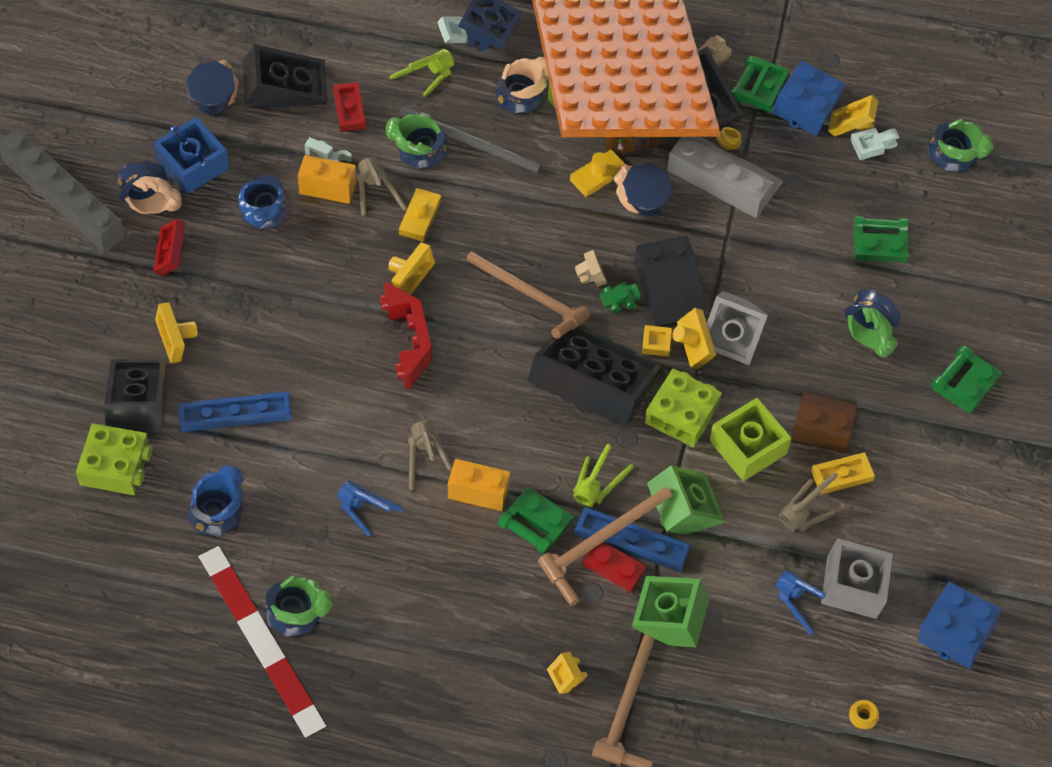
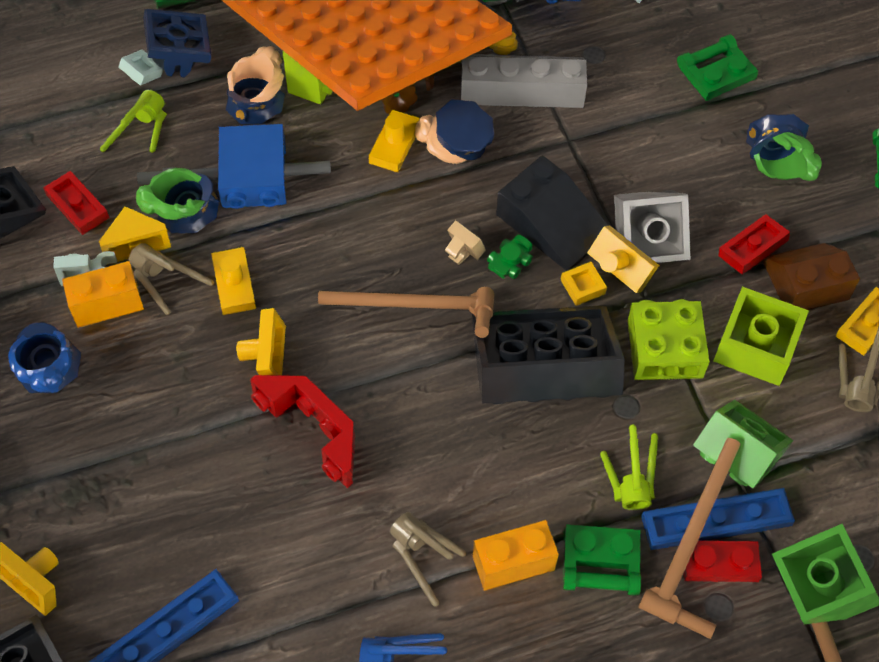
camera: 30 degrees left, 0 degrees up
(372, 144) = (132, 229): none -> yellow slope
(483, 140) = (251, 166): none -> blue panel
(801, 378) = (754, 244): none -> red plate

